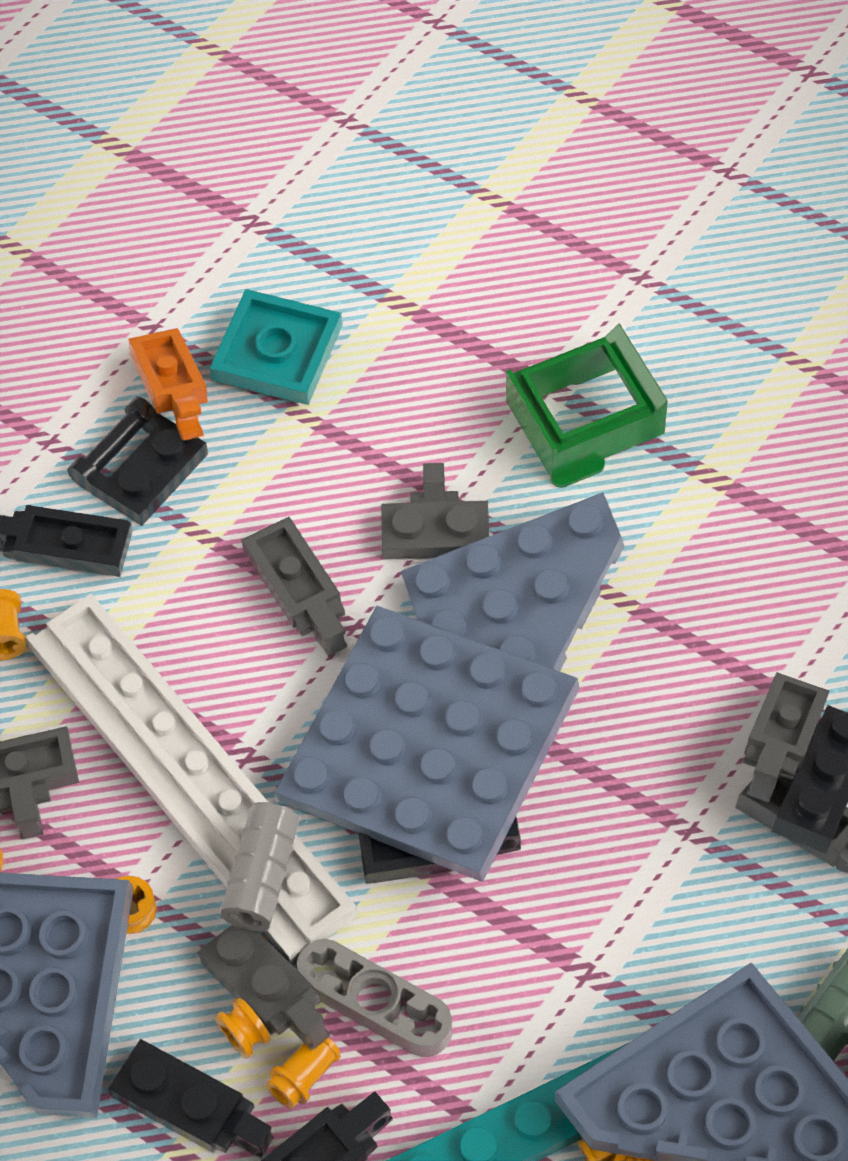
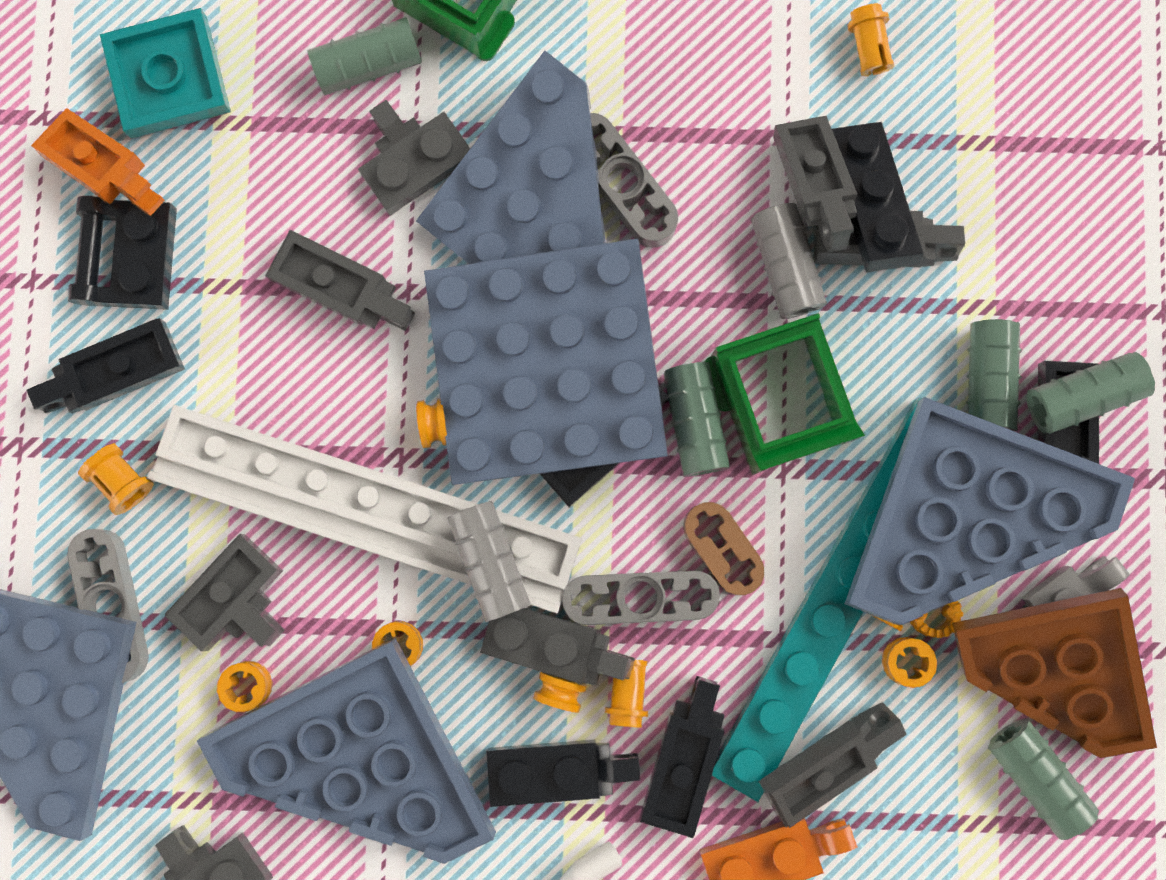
camera: 35 degrees left, 25 degrees up
(291, 734) = (431, 423): none -> light orange bush
(451, 422) = (364, 56): none -> sand green axle
(493, 1002) = (733, 540): none -> medium nougat beam
(532, 873) = (696, 419): none -> sand green axle
(622, 661) = (655, 202): none -> light grey beam
(643, 842) = (733, 397): none -> green piece
(710, 792) = (788, 260): none -> light grey axle

